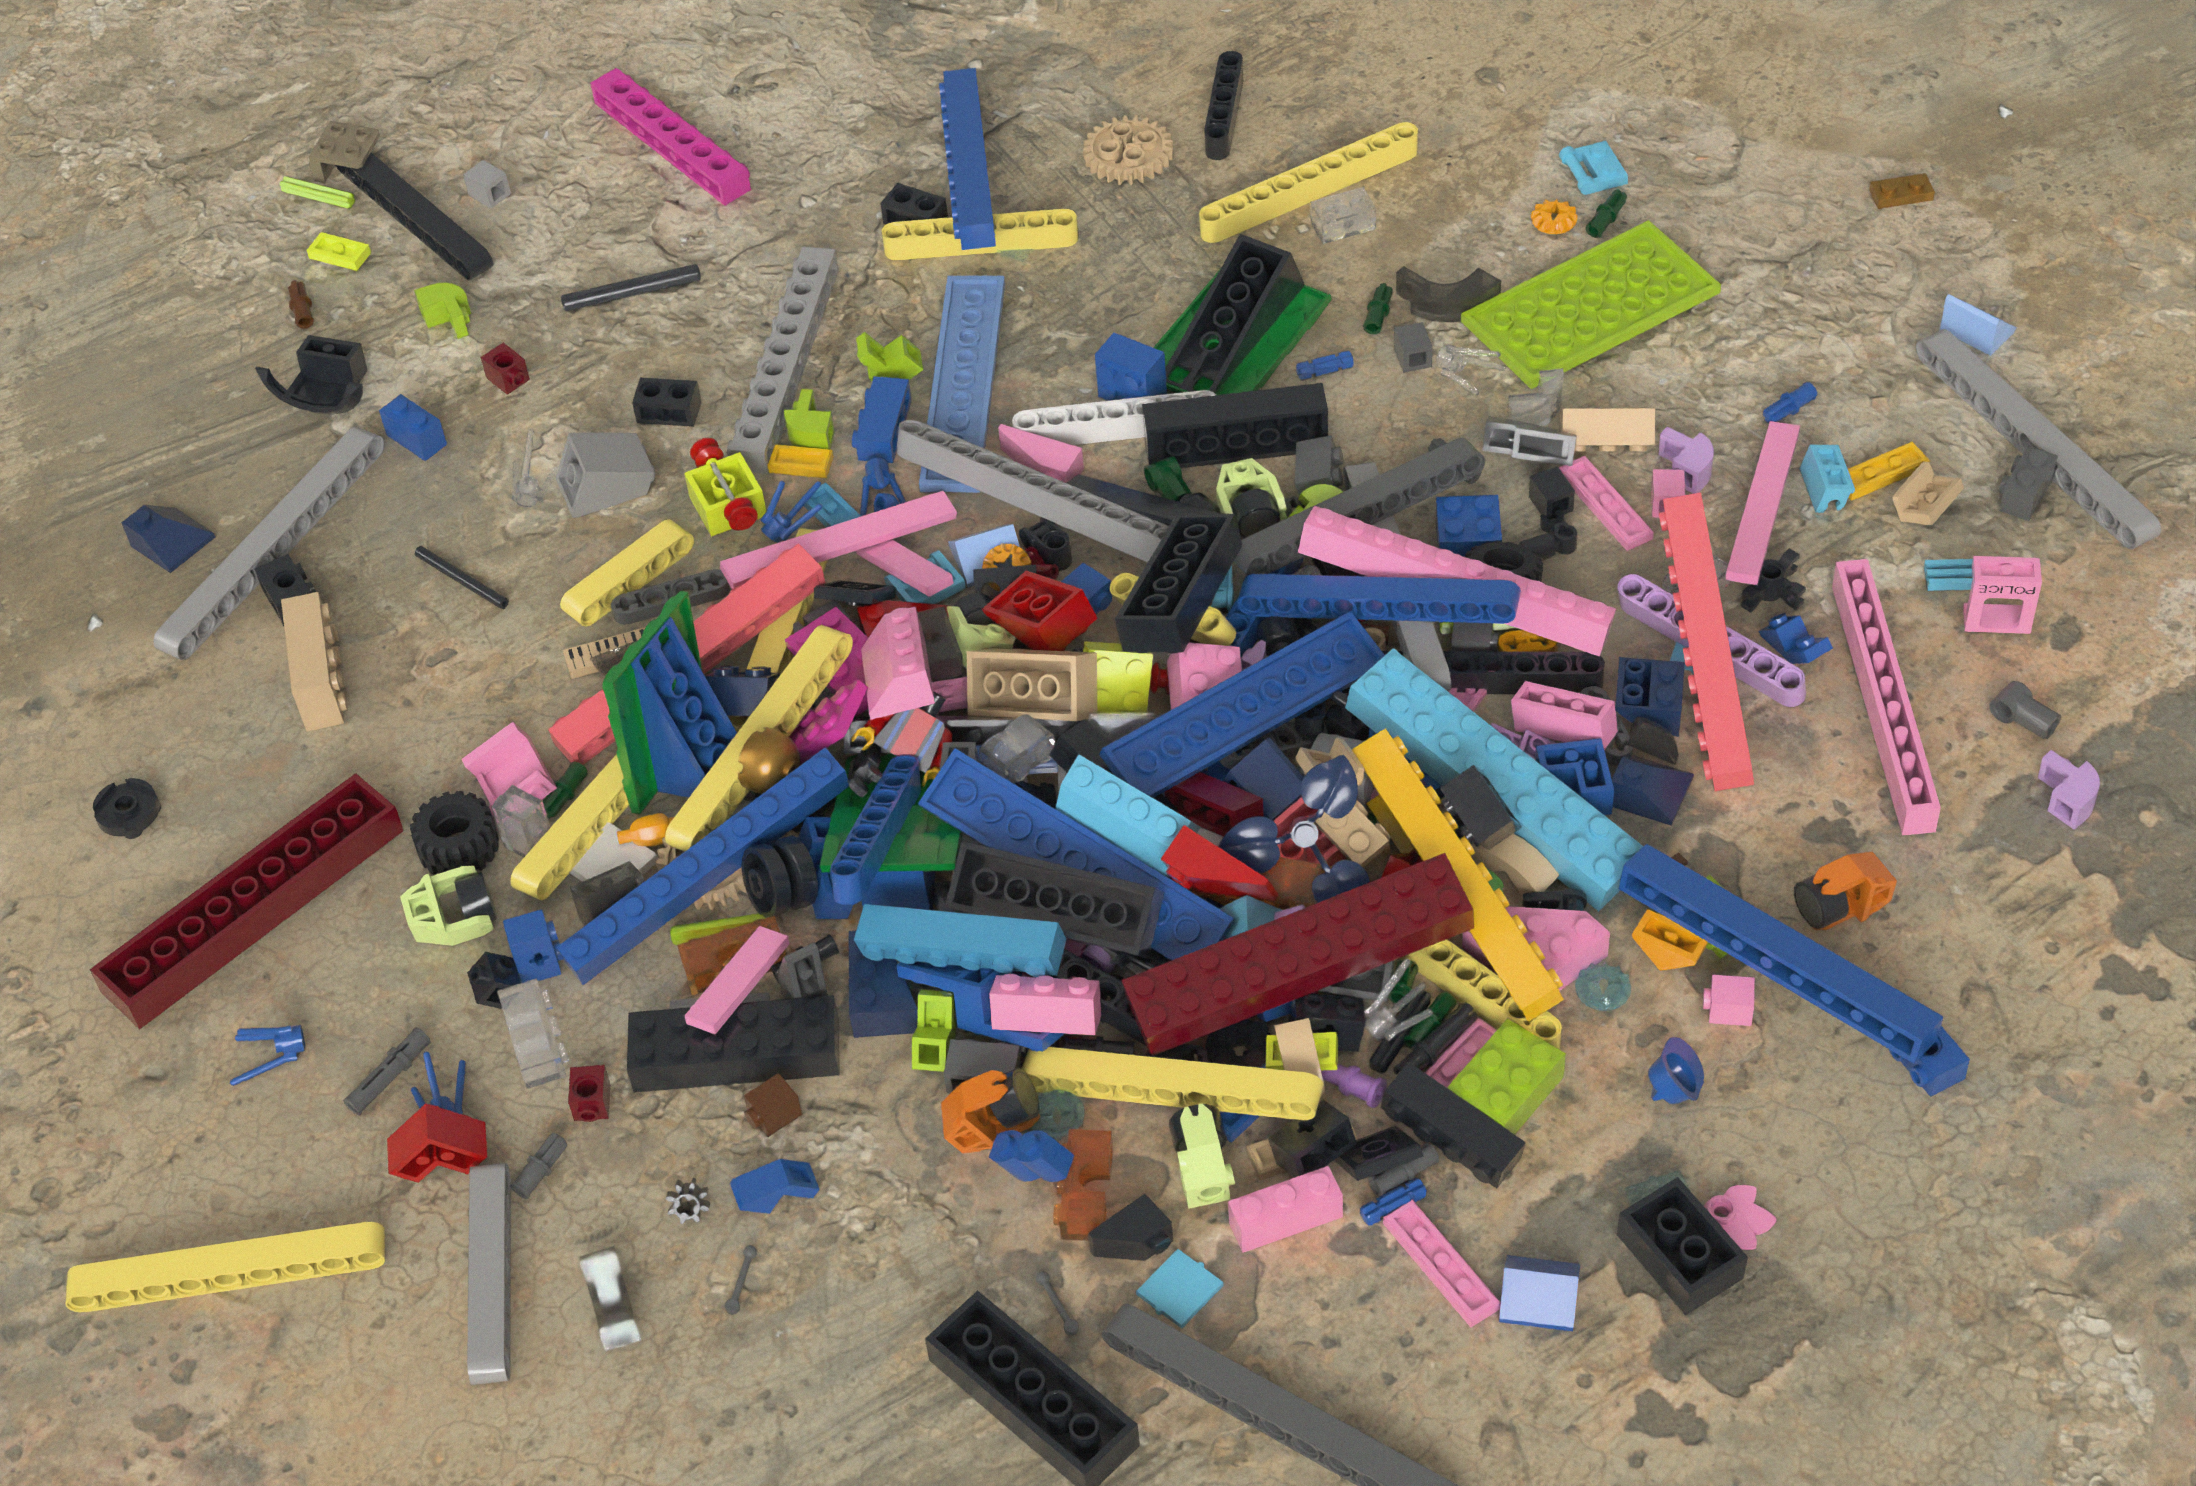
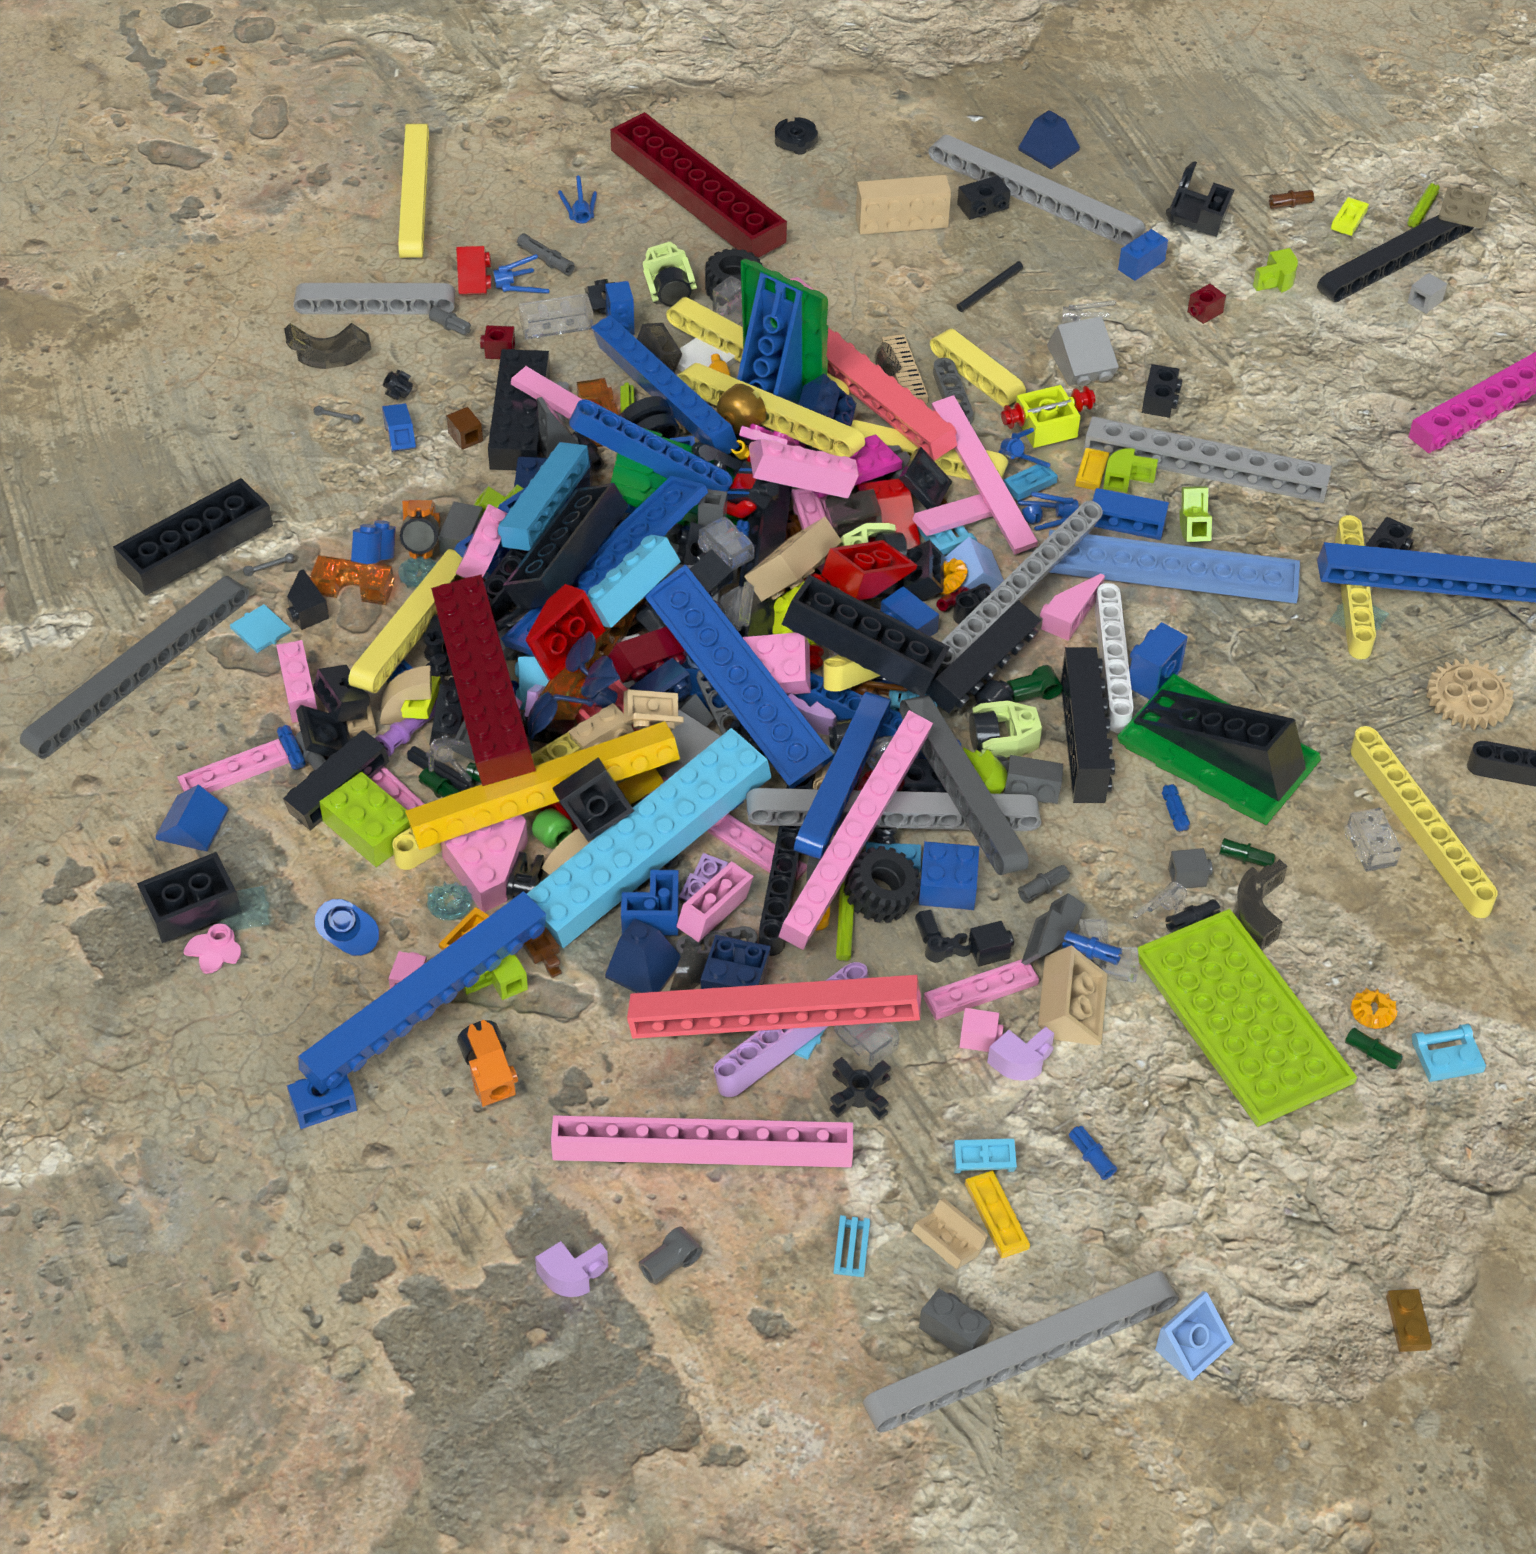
camera: 90 degrees right, 0 degrees up
(630, 287) = (1302, 377): black axle -> none
(1198, 1141) = (330, 637): yellowish green piece -> none
(1426, 1051) = (411, 777): black pin -> none
(1464, 334) = (1192, 915): none -> black pin
(1555, 398) = (1093, 947): none -> blue pin
(1762, 503) = (954, 1096): bright pink tile -> none
(1792, 640) = (789, 1098): blue slope -> none
(2003, 579) = (790, 1246): bright pink window -> none

